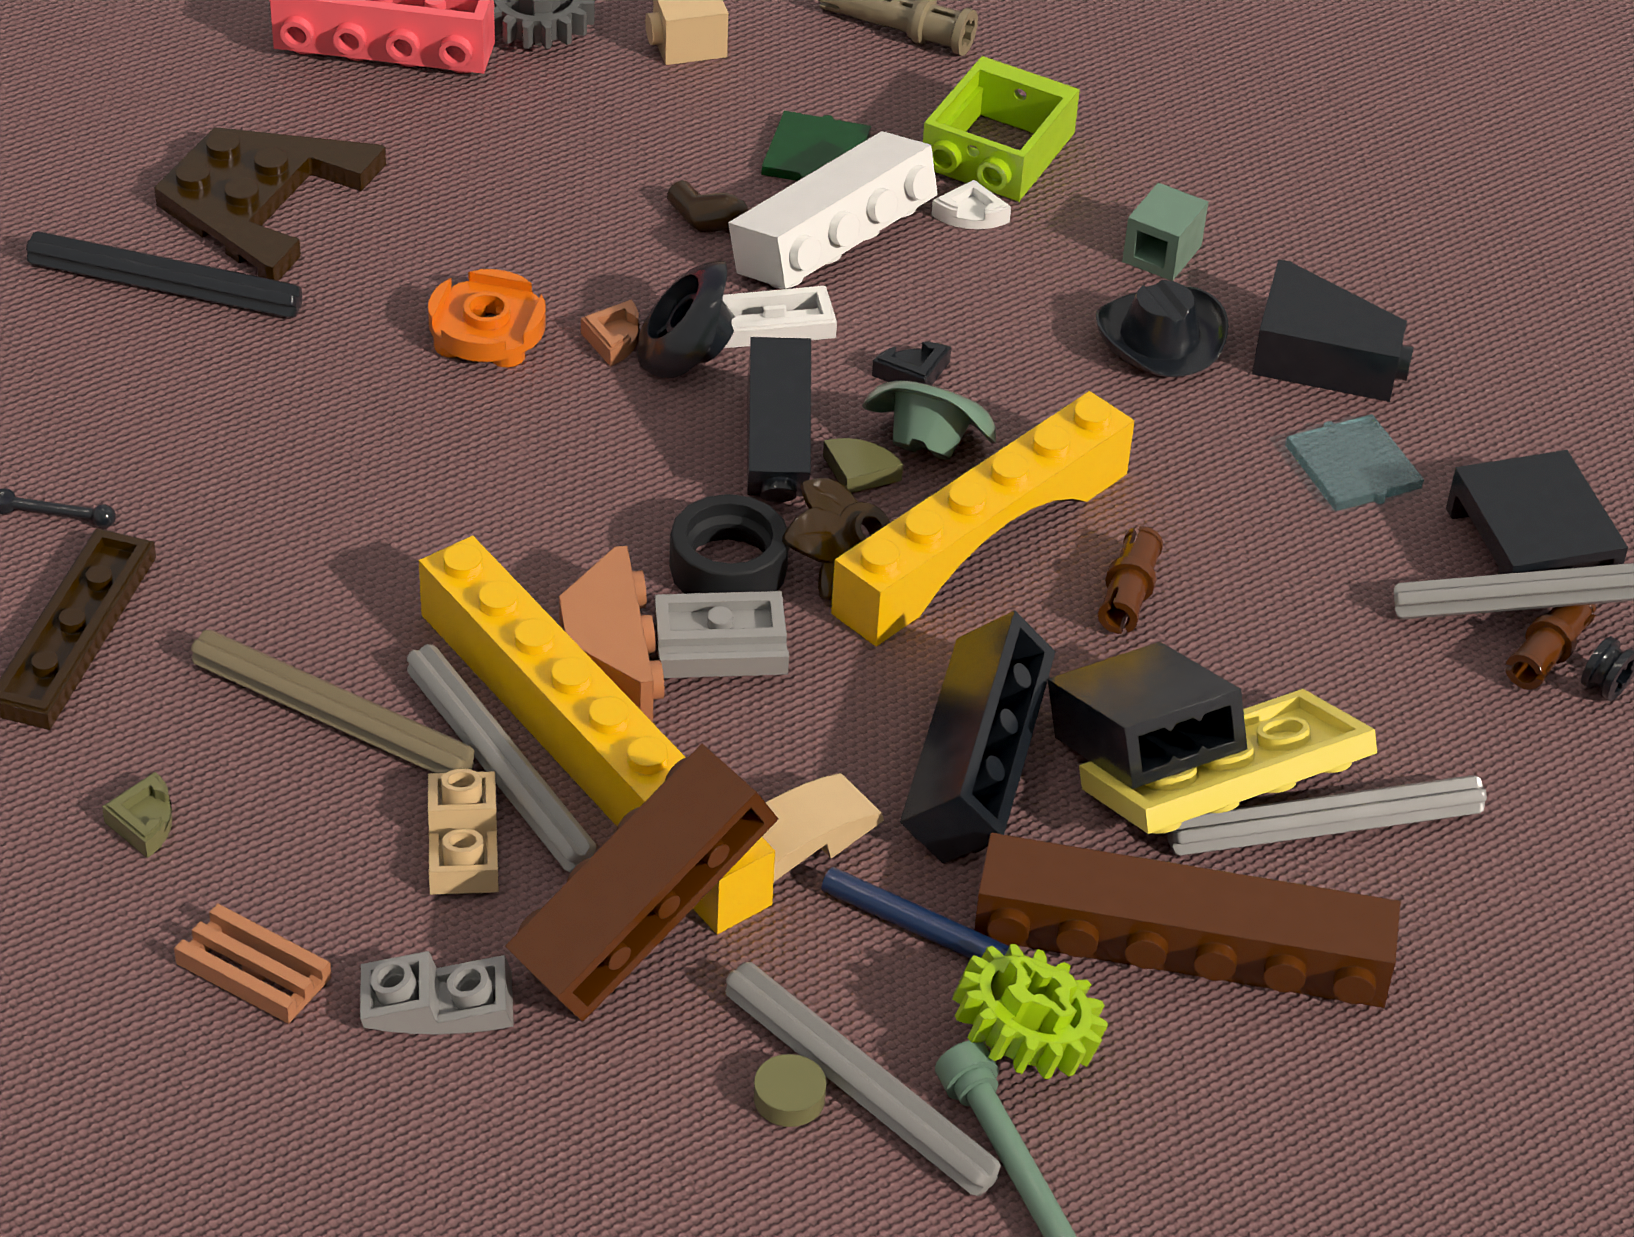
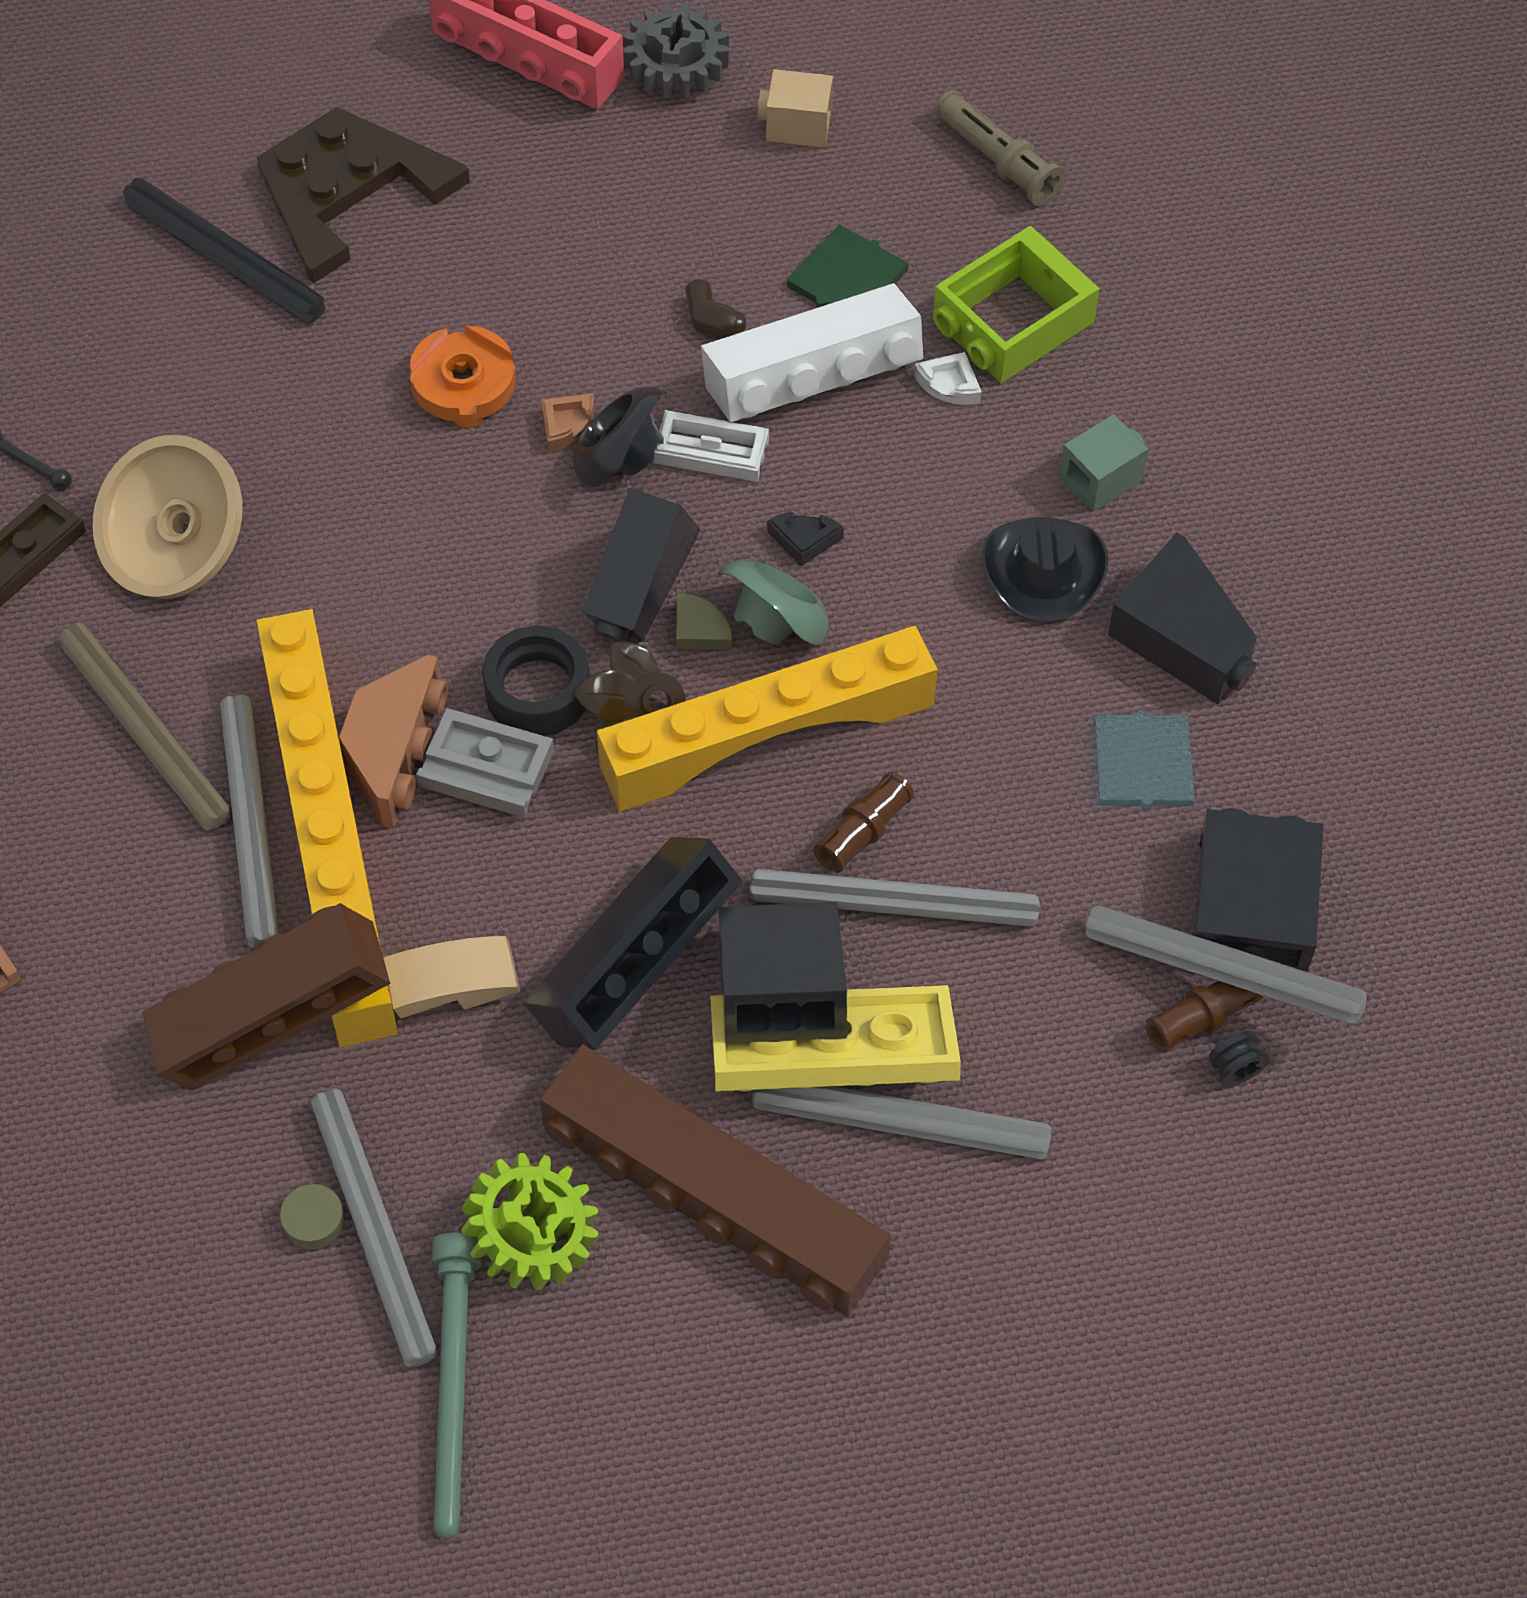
camera: 25 degrees right, 15 degrees up
(236, 480) = (144, 513): none -> tan dish
(418, 998) = (83, 1029): light grey slope -> none
(462, 832) = (184, 884): tan slope -> none
(908, 914) = (501, 1093): dark blue bar -> none
(1212, 631) = (896, 897): none -> light grey axle

